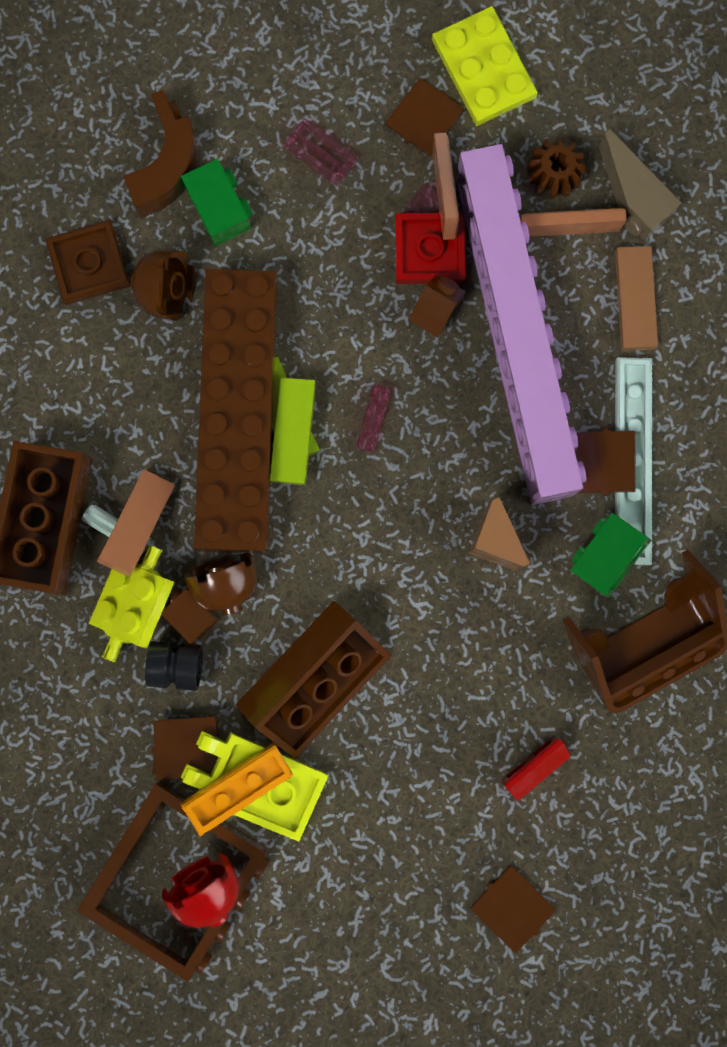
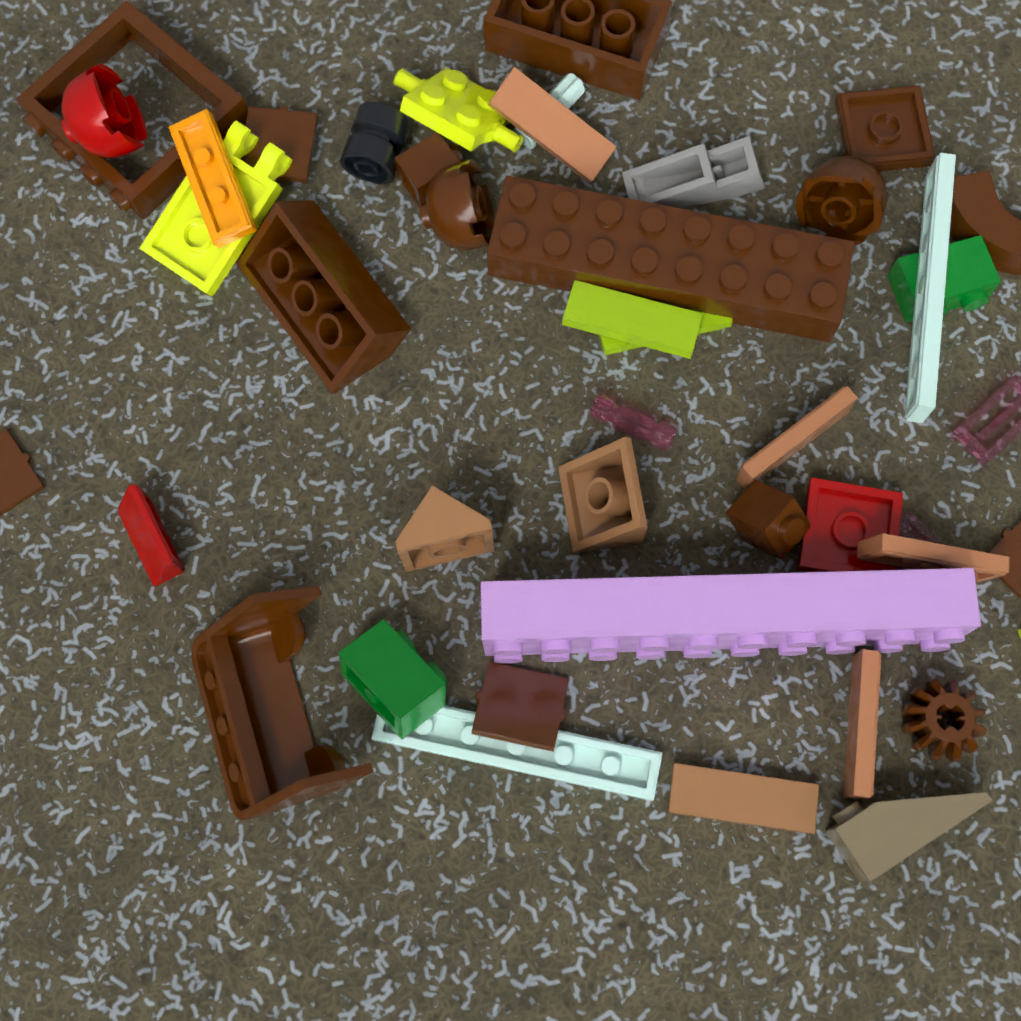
camera: 105 degrees right, 10 degrees down
(160, 404) = (697, 175): none -> light grey slope
(237, 207) = (930, 289): none -> light aqua tile
(366, 295) = (796, 437): none -> nougat tile
(441, 428) = (603, 498): none -> medium nougat slope

